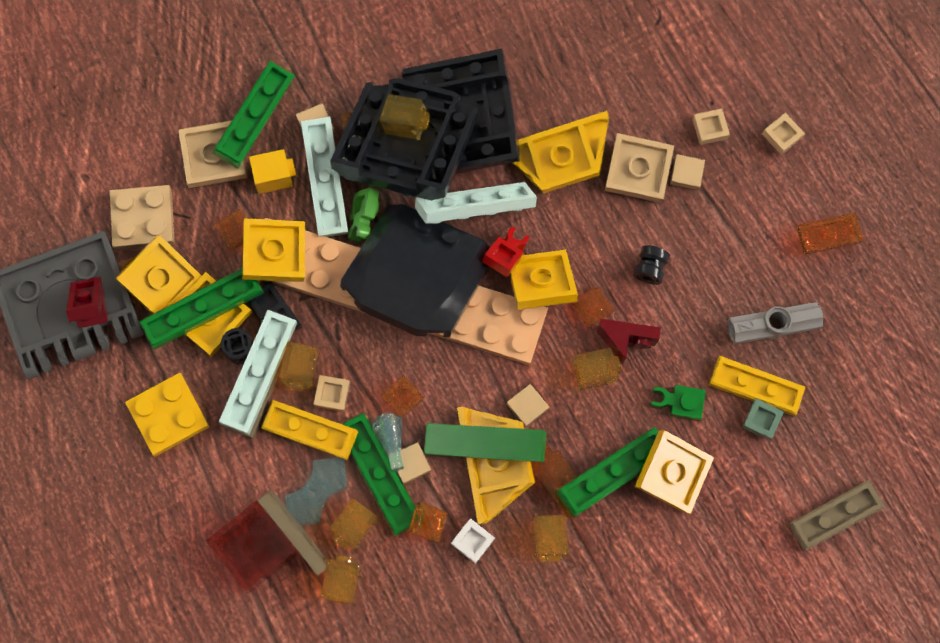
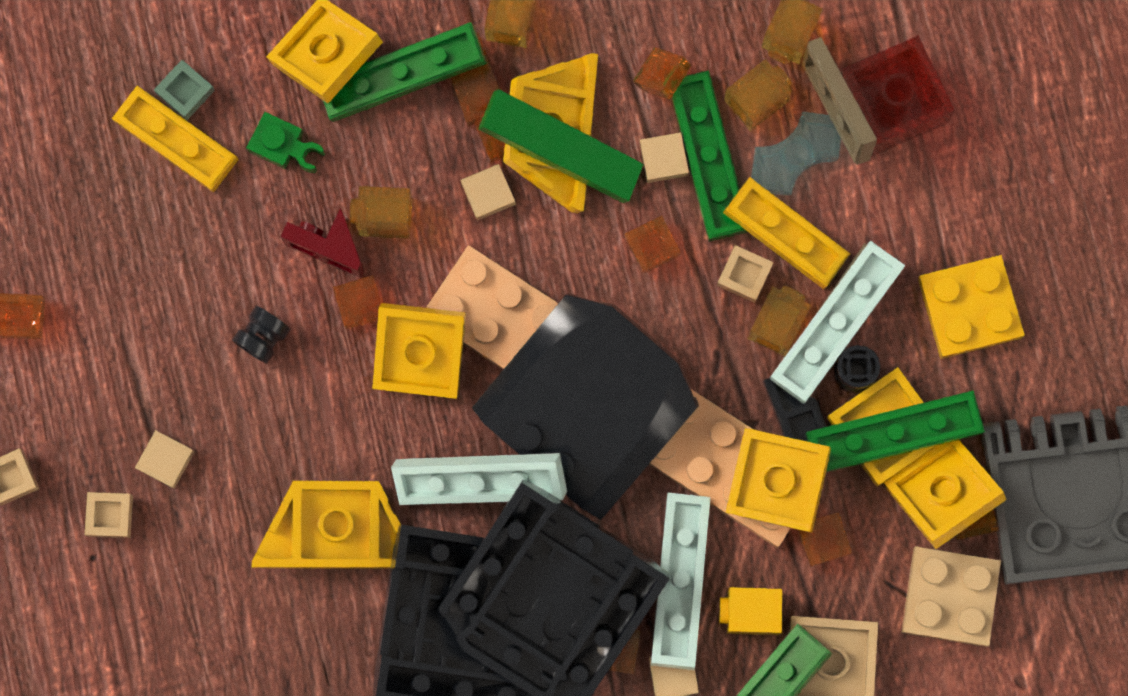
camera: 155 degrees left, 5 degrees up
(87, 303) = (1051, 475): dark red slope -> none
(364, 209) = (638, 515): bright green plate -> none
(389, 431) = (682, 197): clear light blue cone -> none
(404, 117) = (545, 623): clear yellow brick -> none
(472, 541) = (610, 36): white plate -> none
(505, 253) = (459, 396): red plate -> none
(639, 168) = (231, 480): tan plate -> none
(792, 320) = (95, 209): light grey piece -> none

